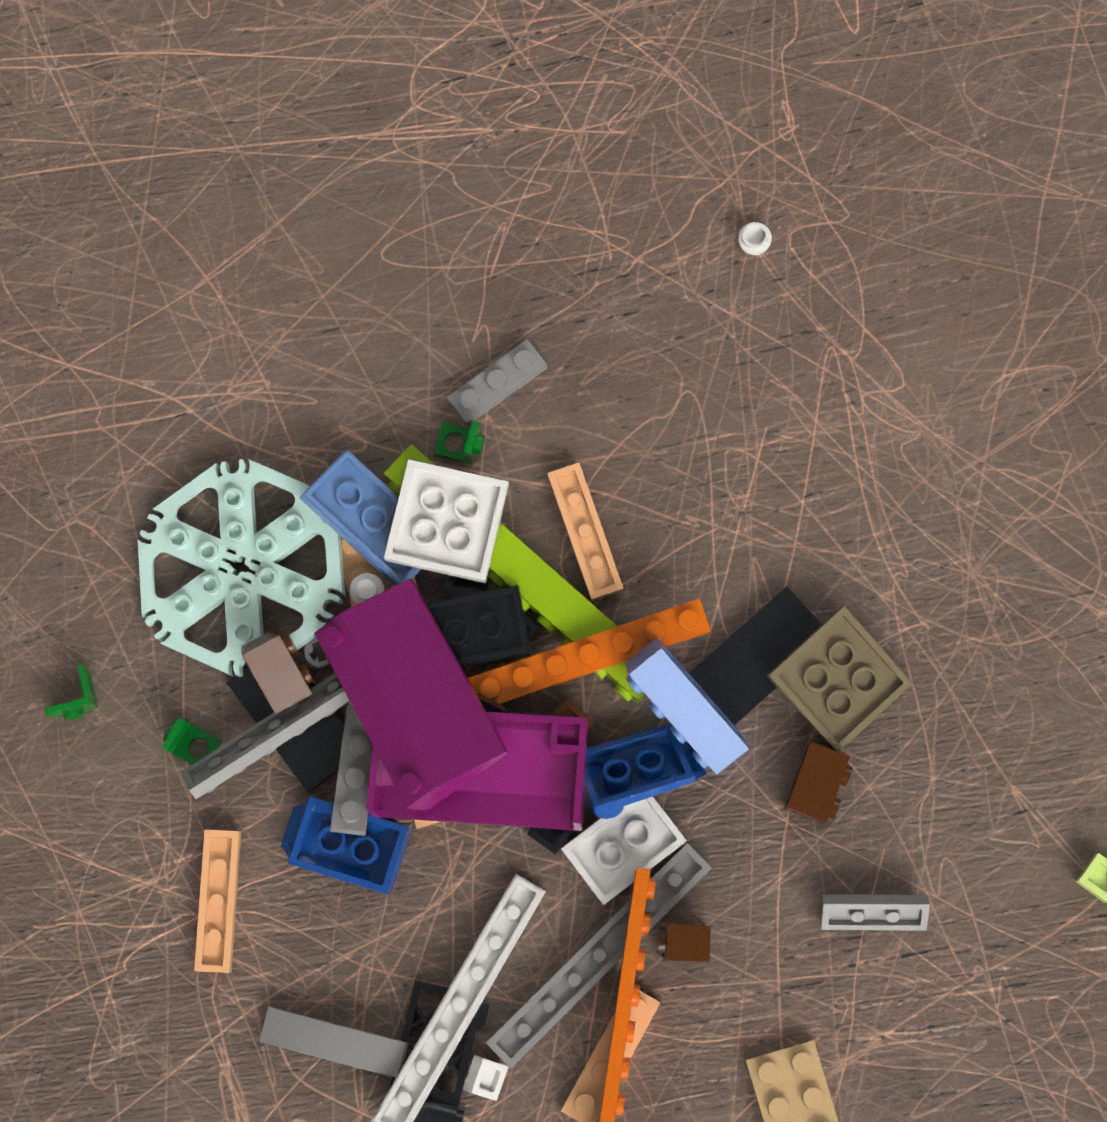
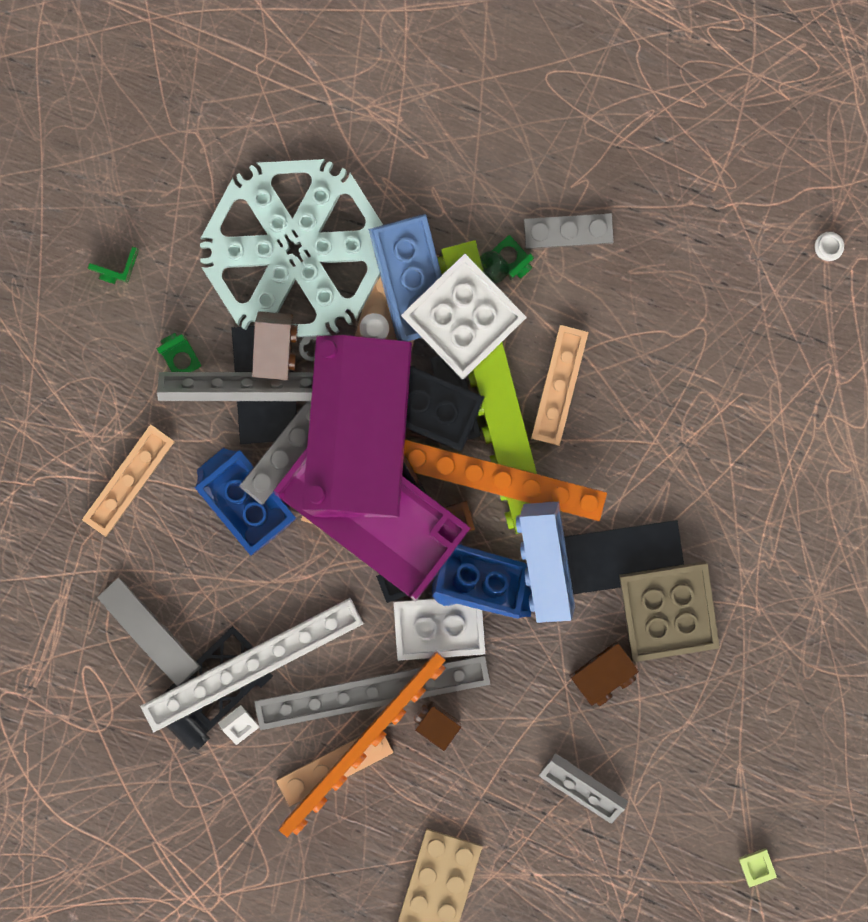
camera: 25 degrees right, 10 degrees up
(446, 456) = (494, 266): none -> clear green piece

